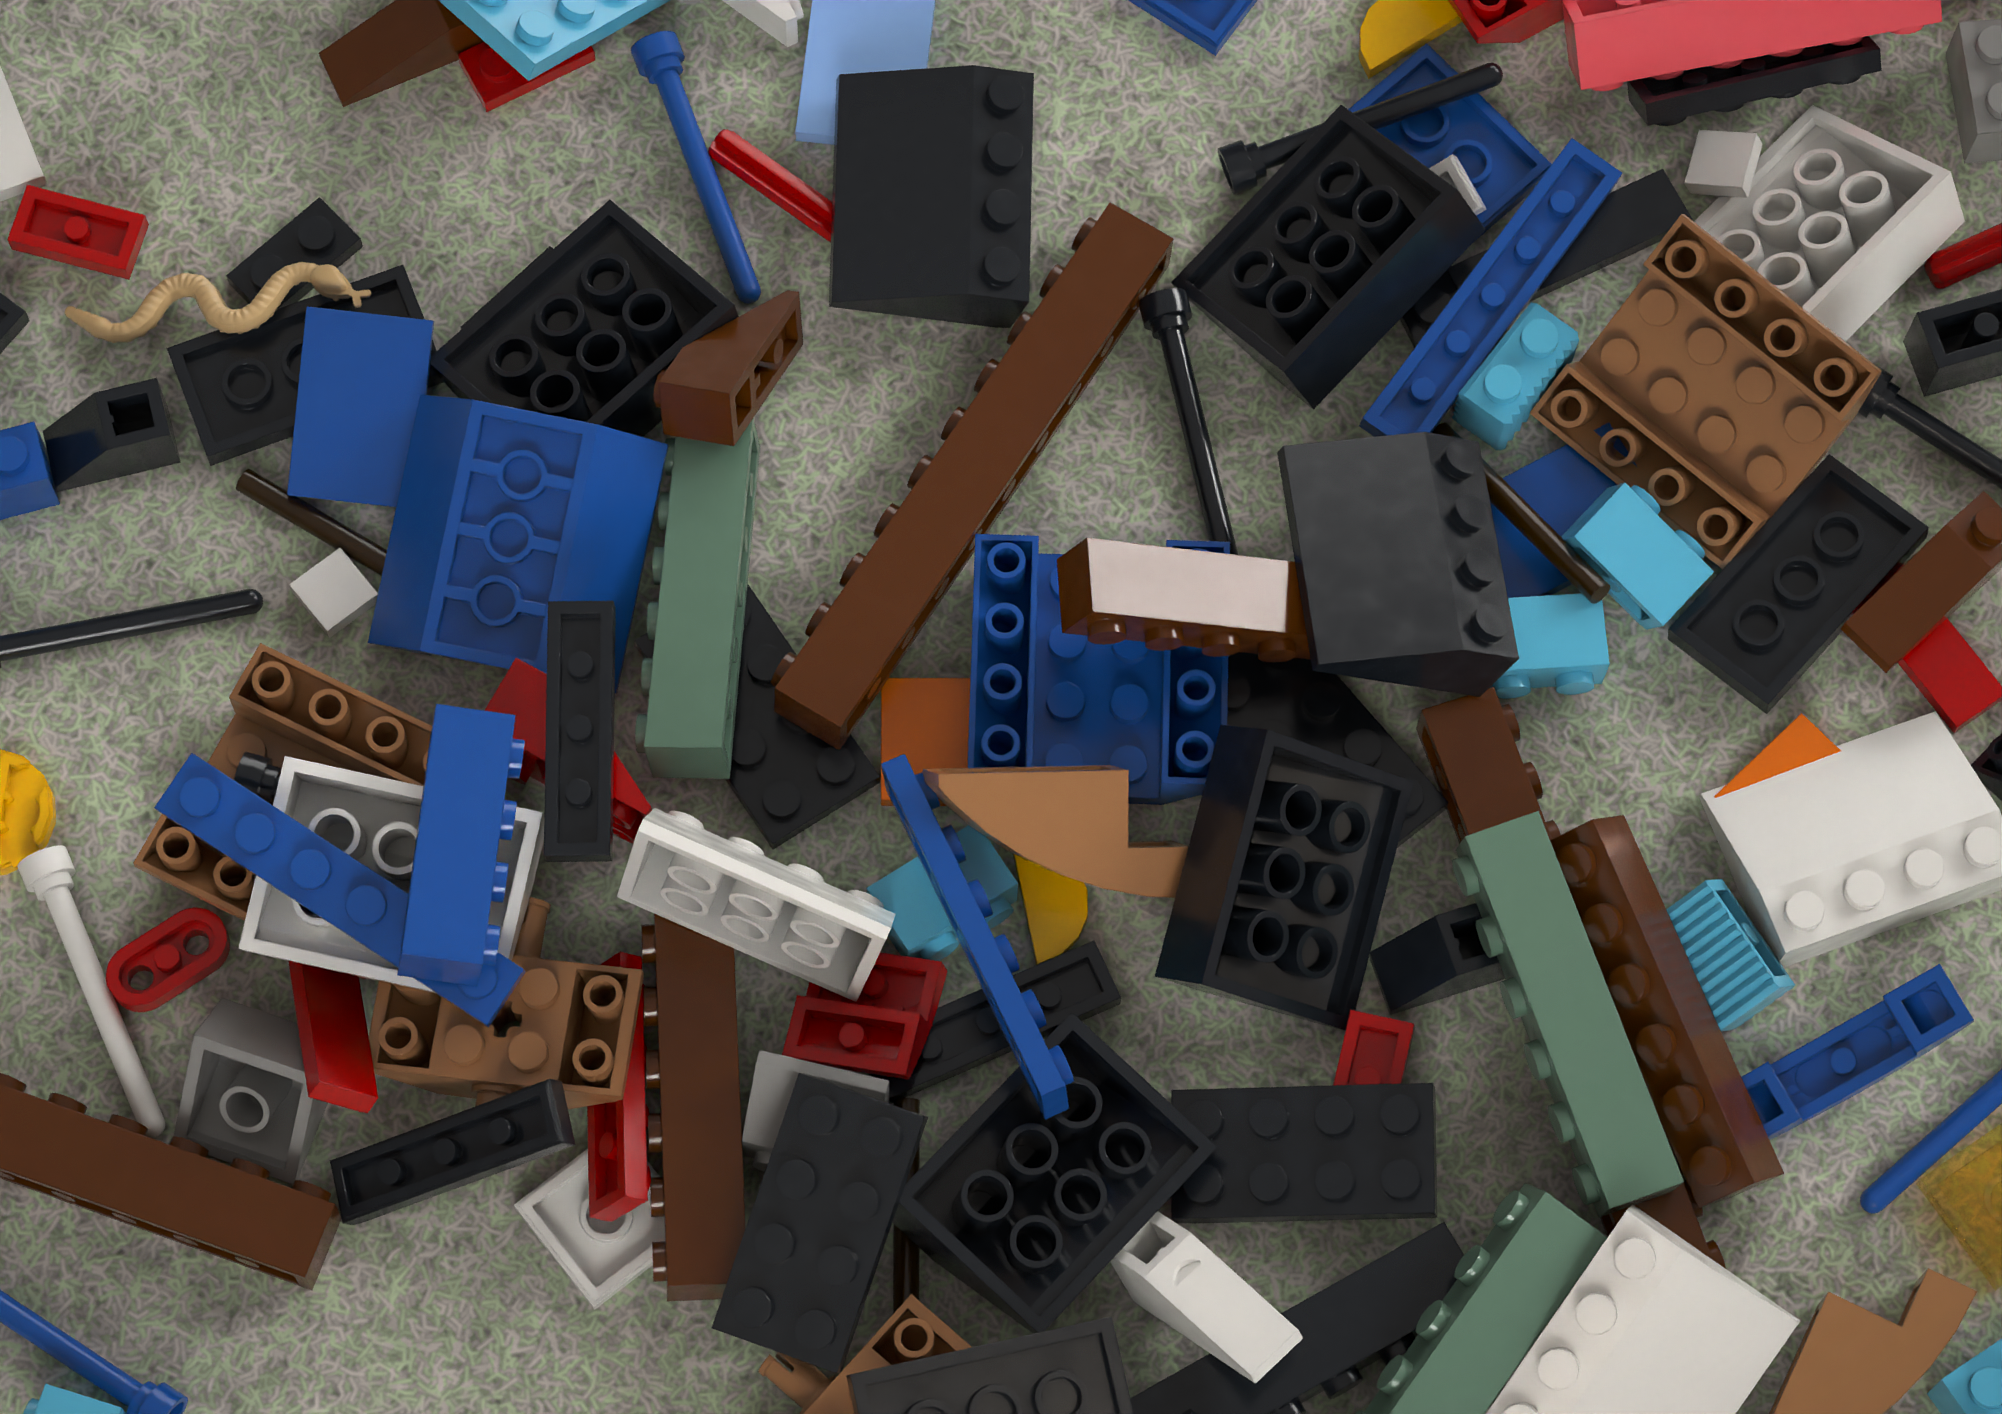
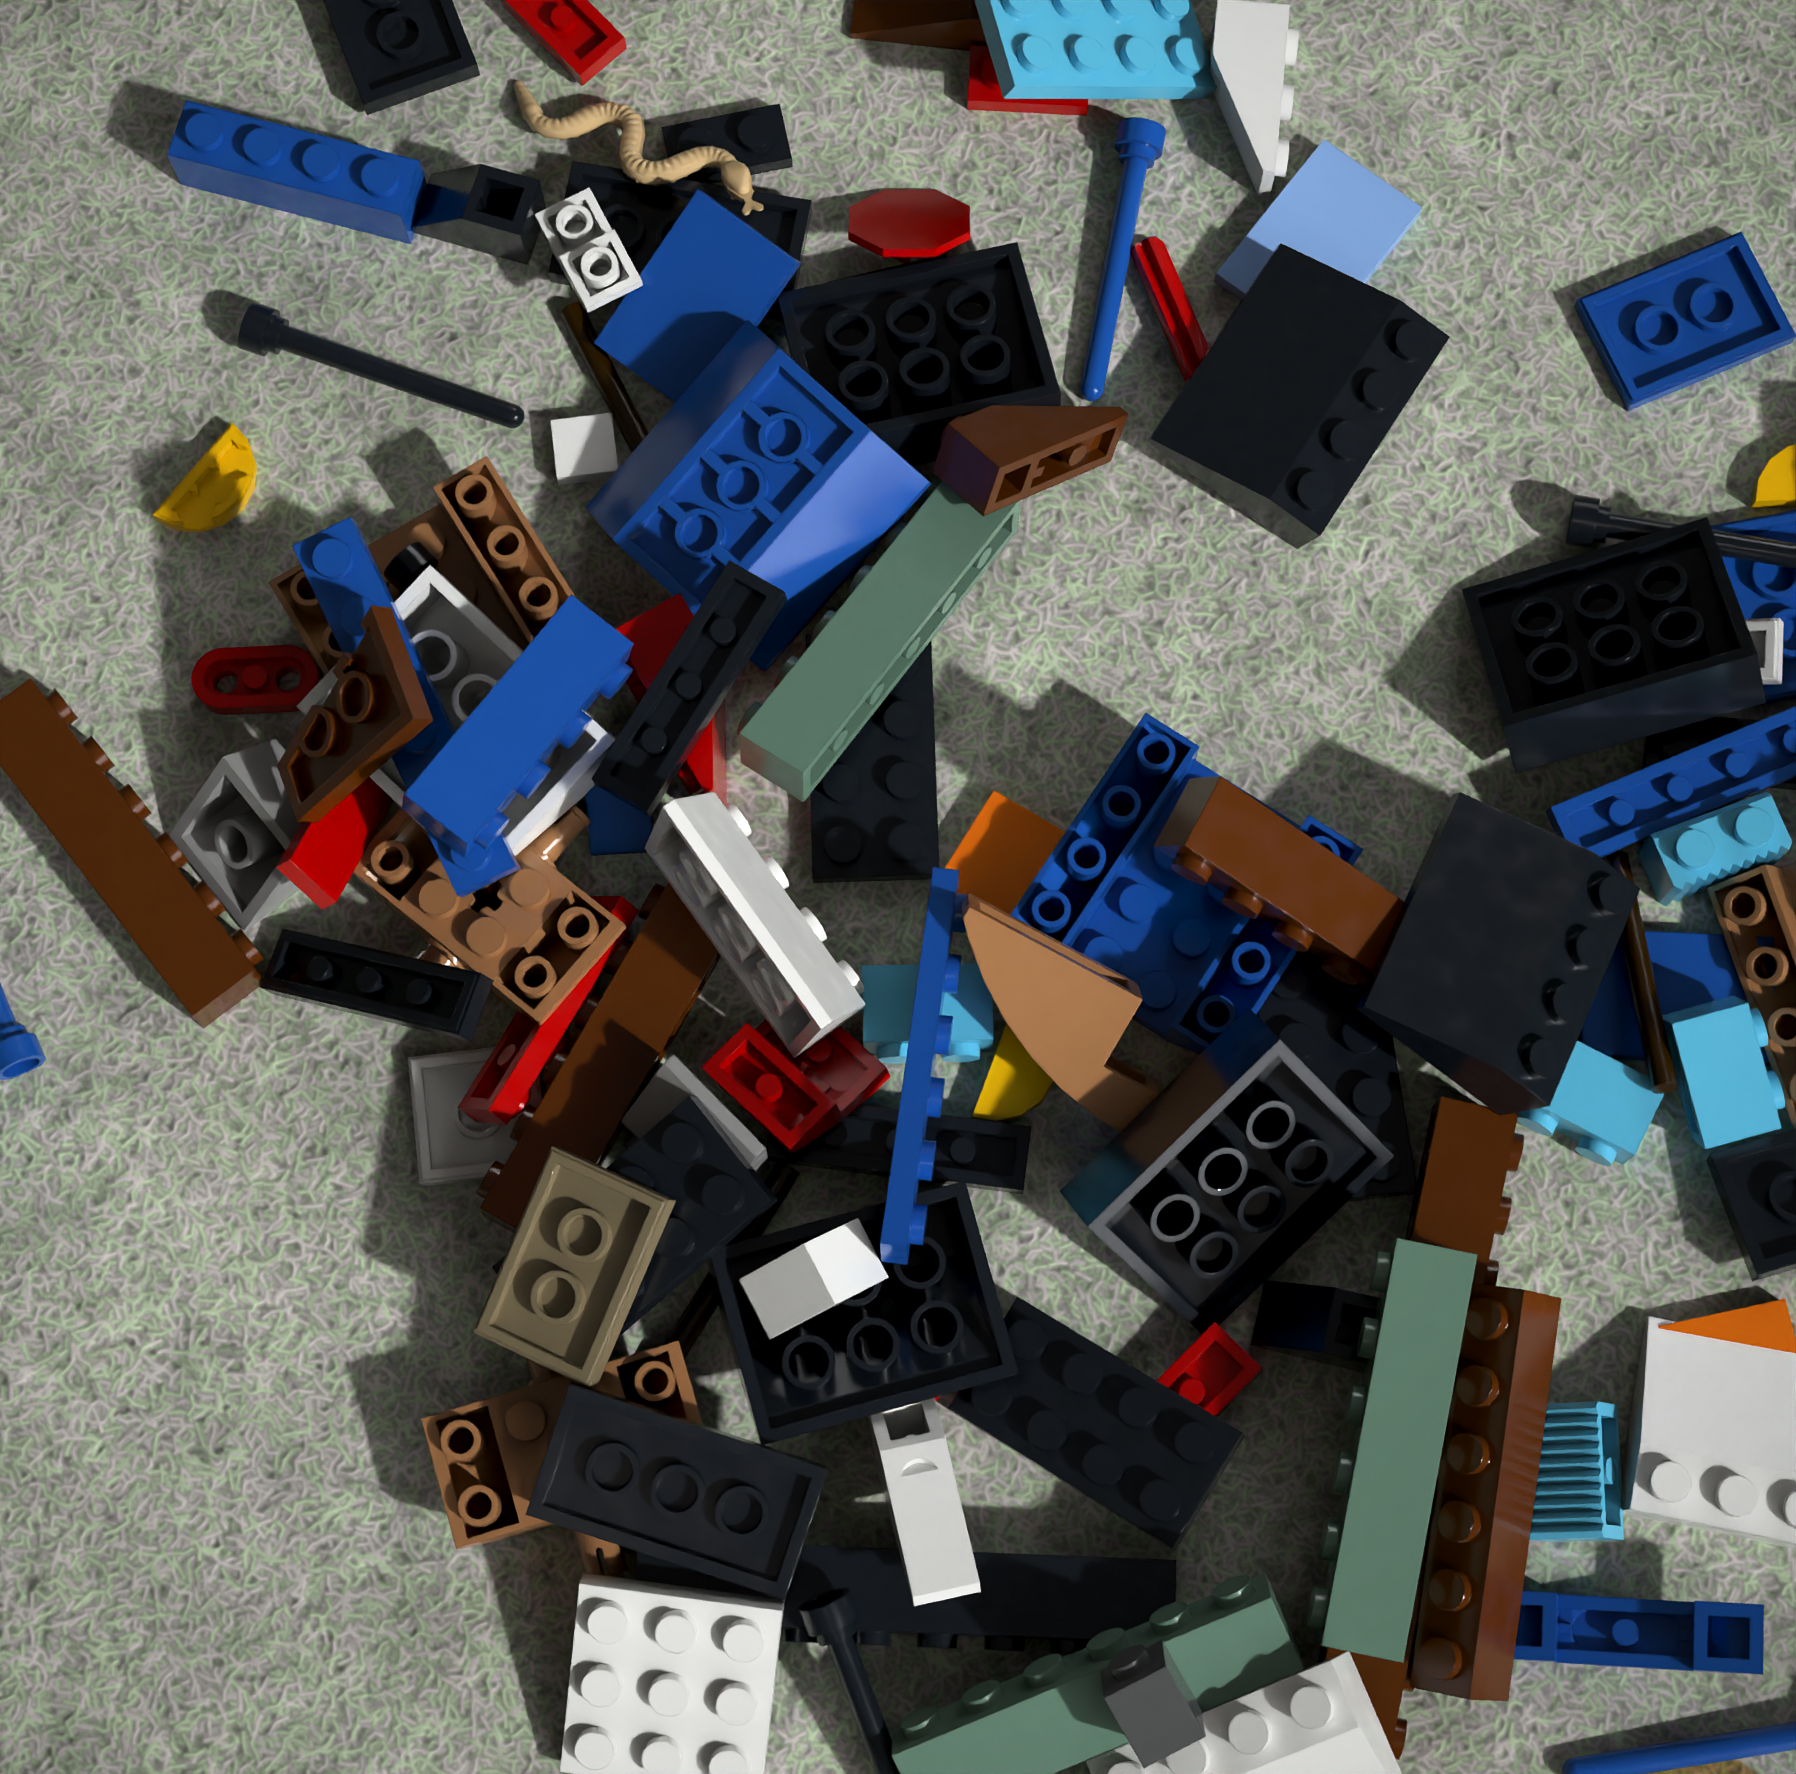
camera: 35 degrees right, 5 degrees up
(49, 876) = (204, 555): white piece -> none
(235, 416) = (588, 250): none -> white slope
(314, 924) = (361, 724): none -> reddish brown wing
(503, 236) = (909, 223): none -> red piece
(574, 893) = (615, 825): none -> blue slope
(788, 1277) = (574, 1266): none -> dark tan tile
(971, 476) = (1179, 658): reddish brown brick -> none
(996, 1168) = (813, 1278): none -> white slope
(1167, 316) = (1437, 618): black piece -> none
(1502, 1336) = (1152, 1702): none -> dark grey brick

